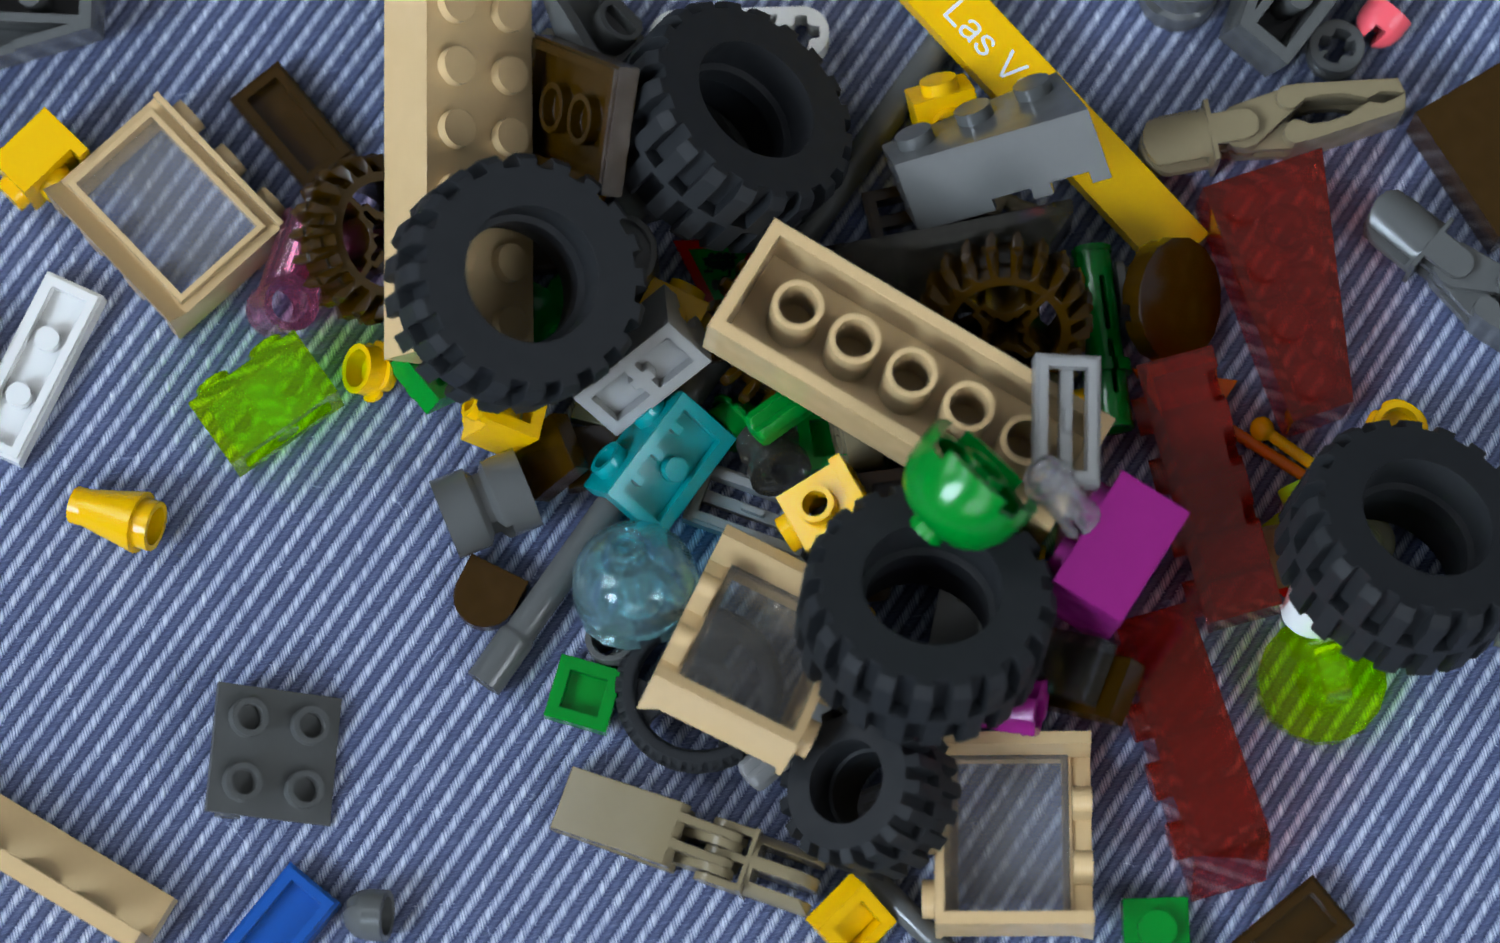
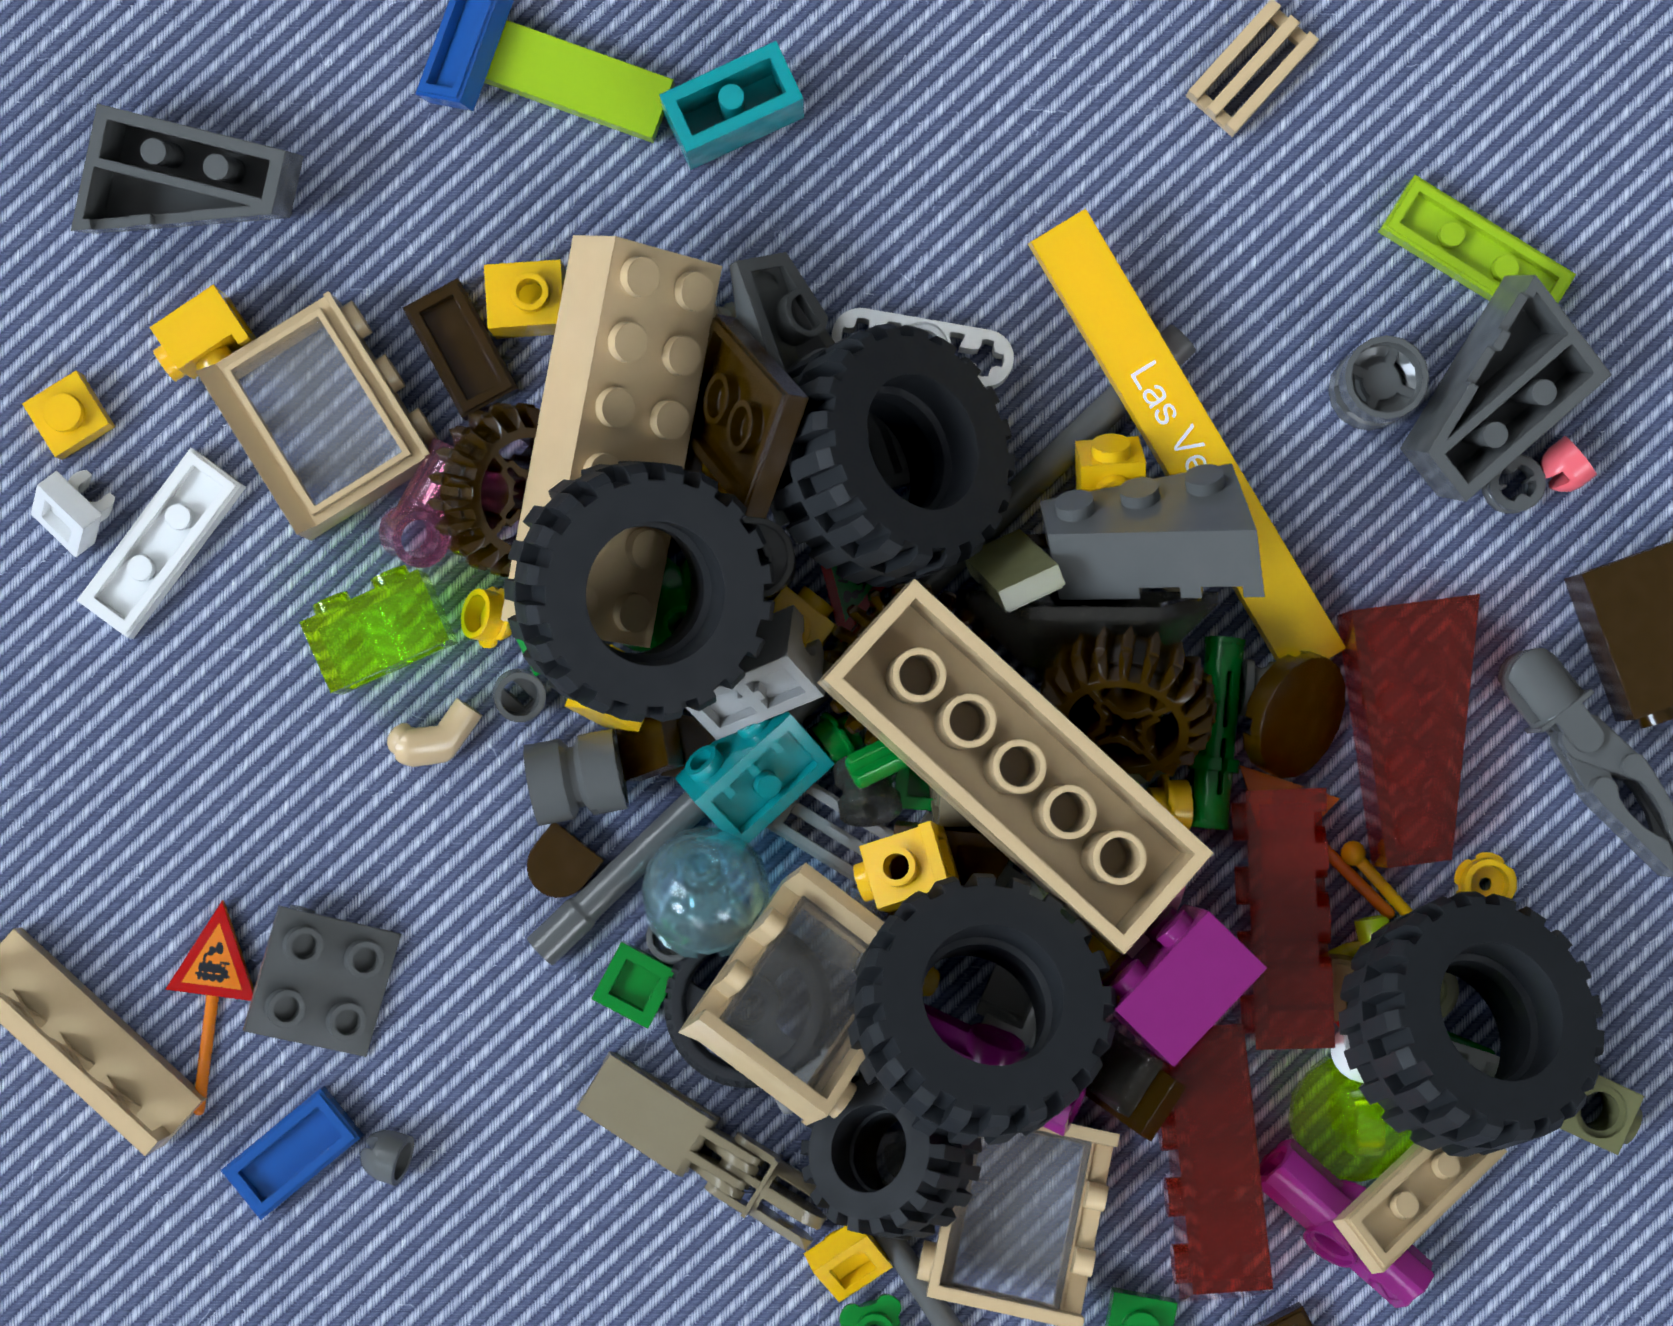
camera: 10 degrees right, 10 degrees up
(122, 517) = (219, 714): yellow cone -> none
(161, 771) = (215, 970): none -> piece
(338, 504) = (433, 743): none -> tan arm
(347, 65) = (523, 297): none -> yellow brick
(421, 427) = (507, 702): none -> dark grey hinge
(870, 212) = (1015, 570): none -> olive tile
(962, 491) = (1045, 911): green cylinder -> none
(1053, 485) = (1137, 923): clear pin -> none
(1065, 364) = (1137, 845): light grey tile -> none
(1267, 125) = (1354, 551): dark tan arm -> none
(1334, 780) = (1314, 1200): none -> magenta piece
(1395, 733) = (1408, 1202): none -> tan tile

